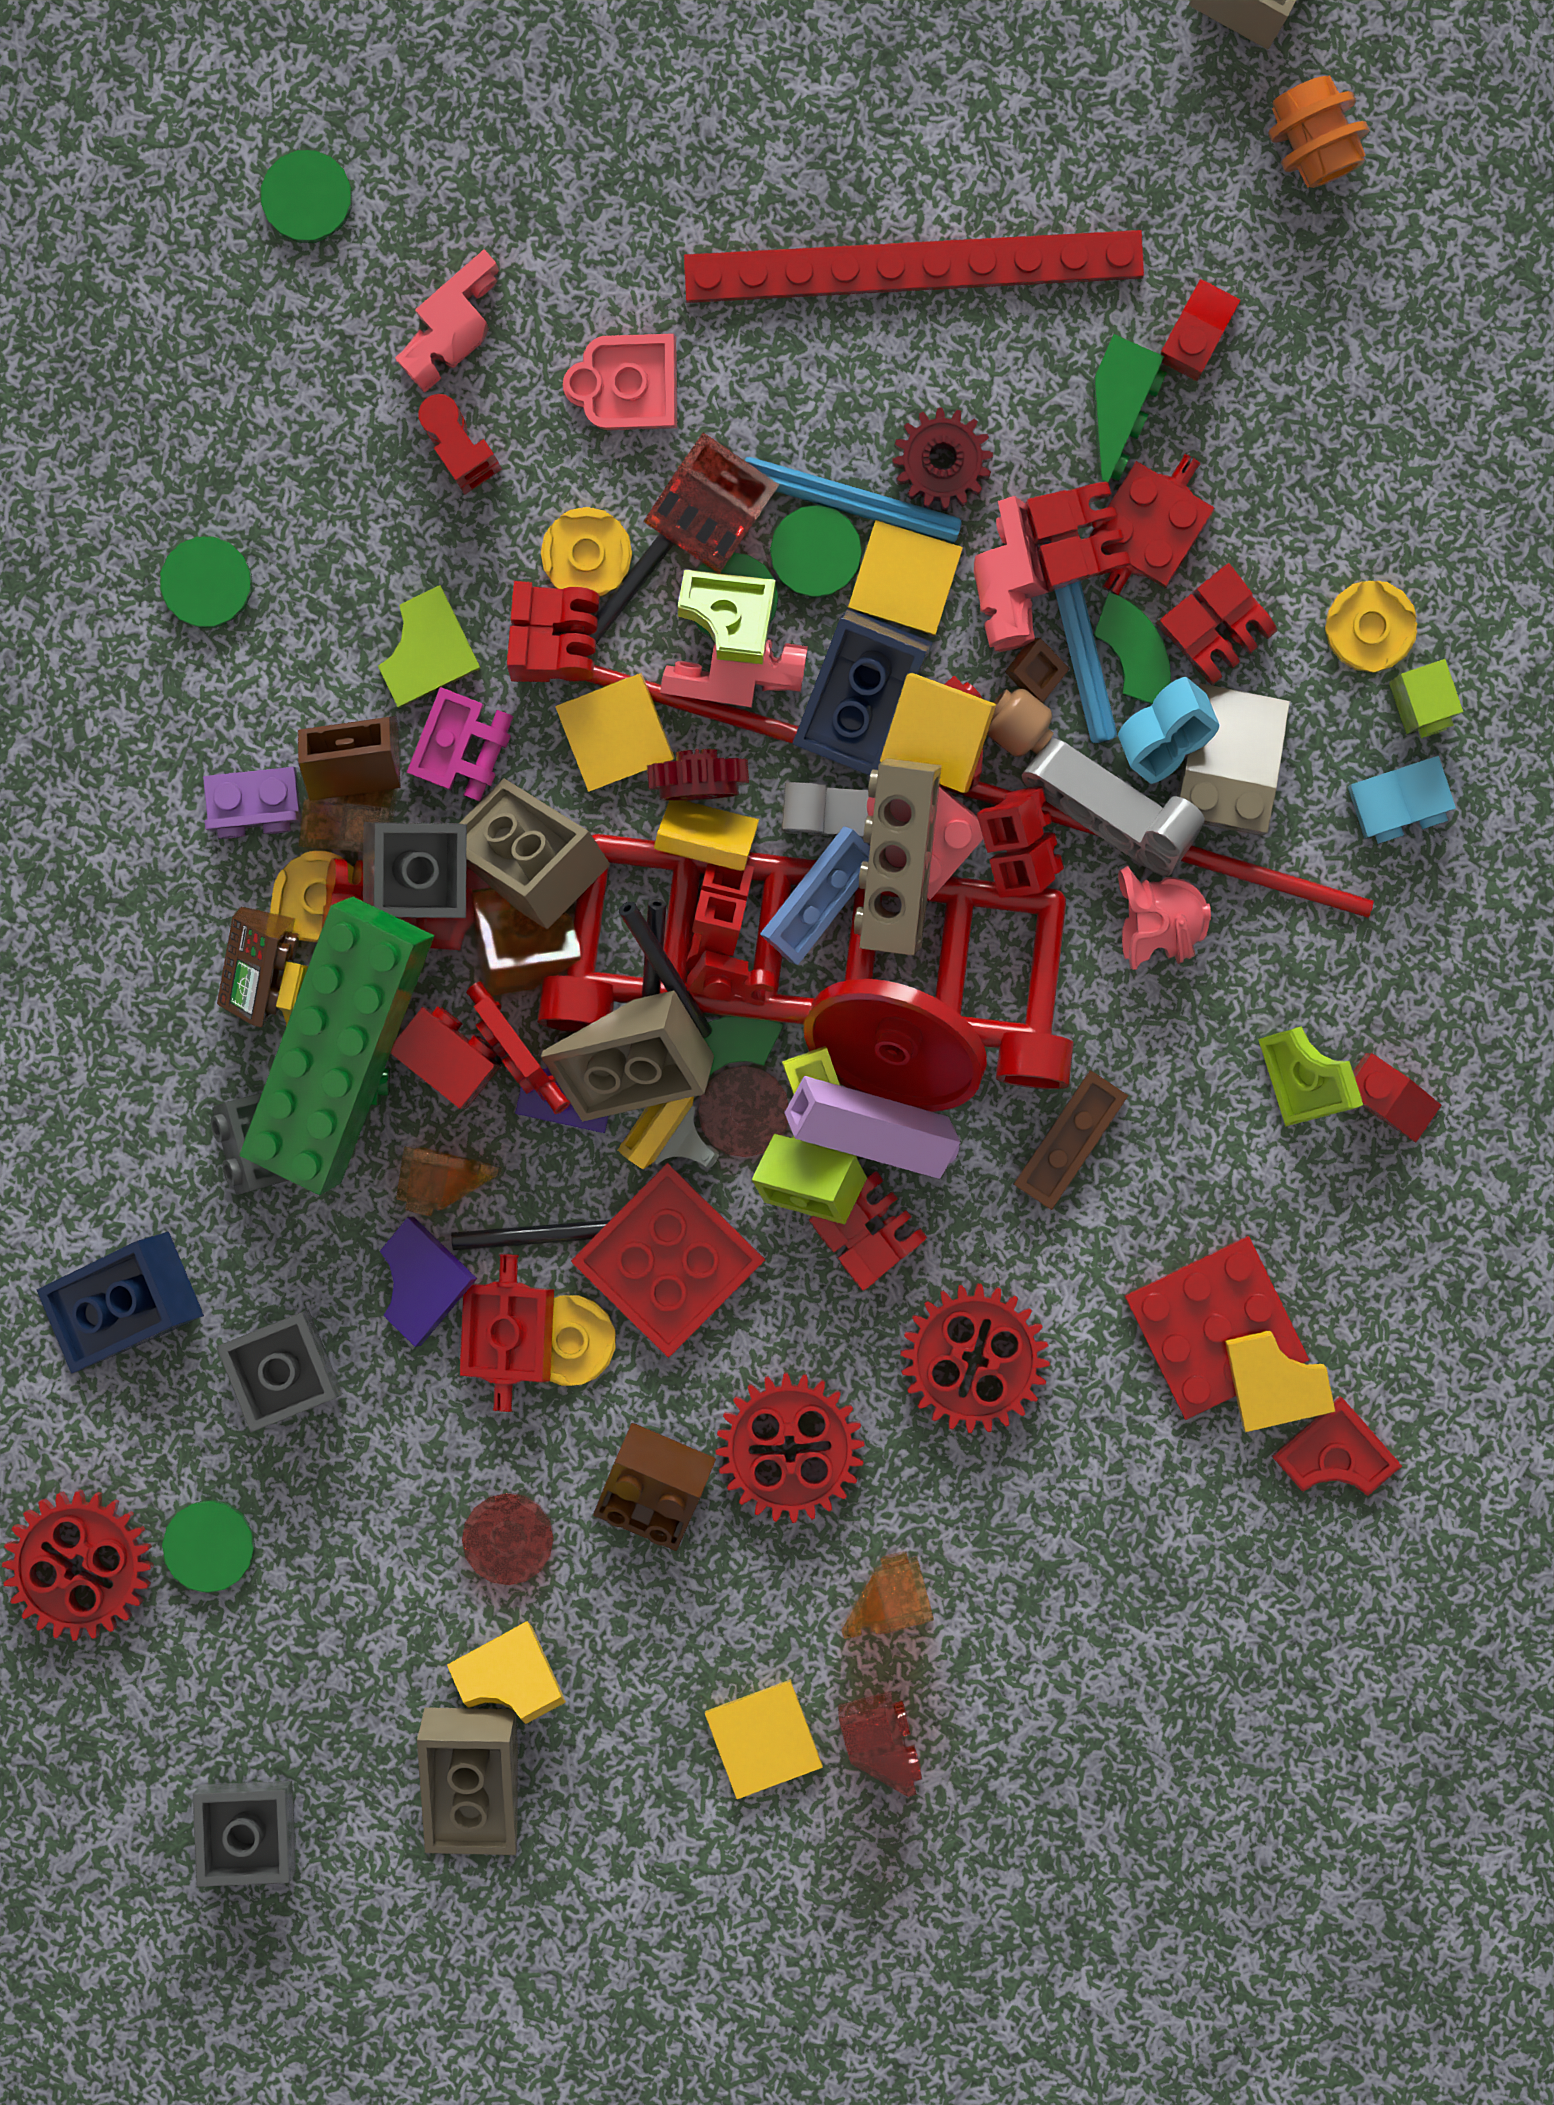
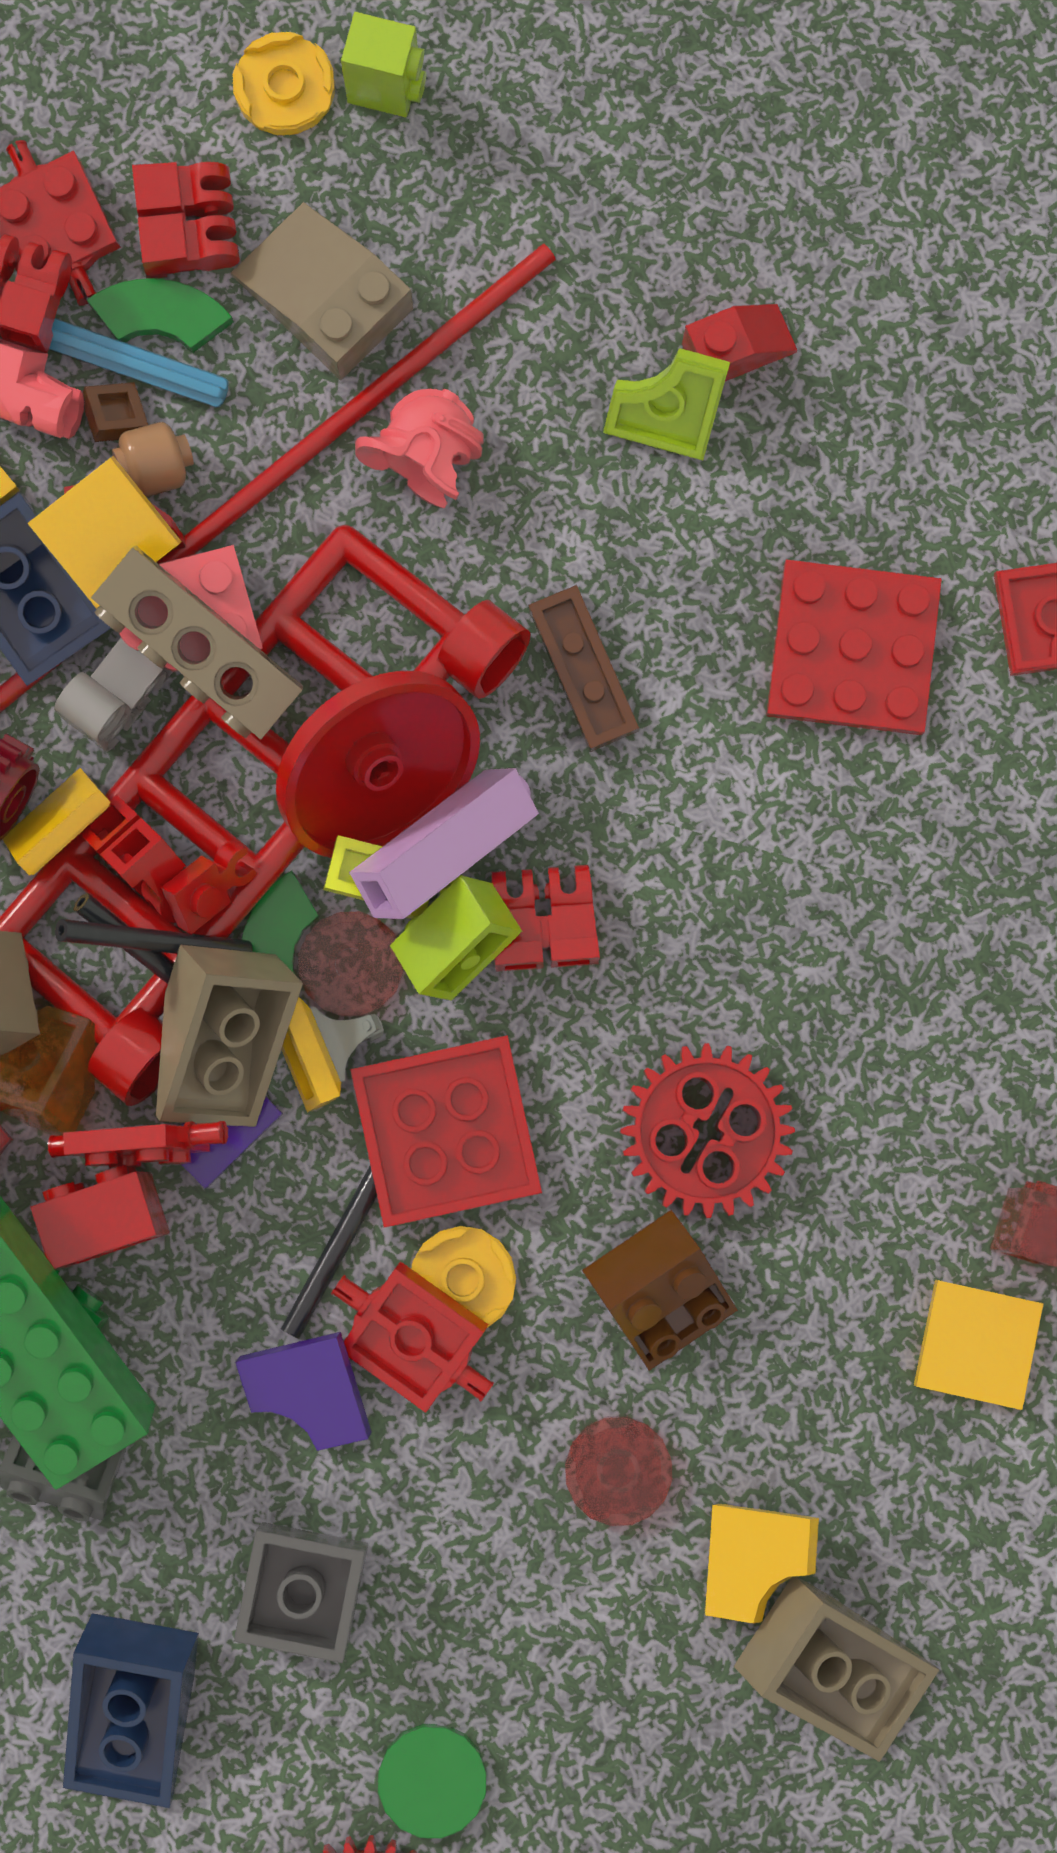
camera: 60 degrees left, 5 degrees down
(439, 1179) = (217, 1304): clear orange slope -> none
(818, 897) = (187, 751): medium blue plate -> none
(890, 1598) = (919, 1127): clear orange slope -> none
(1014, 1370) = (773, 865): red gear -> none
(1029, 855) = (287, 529): red legs -> none
(1114, 809) = (294, 420): light grey beam -> none
(1168, 730) = (252, 321): medium azure brick -> none
(1274, 1387) = (946, 624): yellow tile -> none
(1402, 798) = (463, 153): medium azure brick -> none

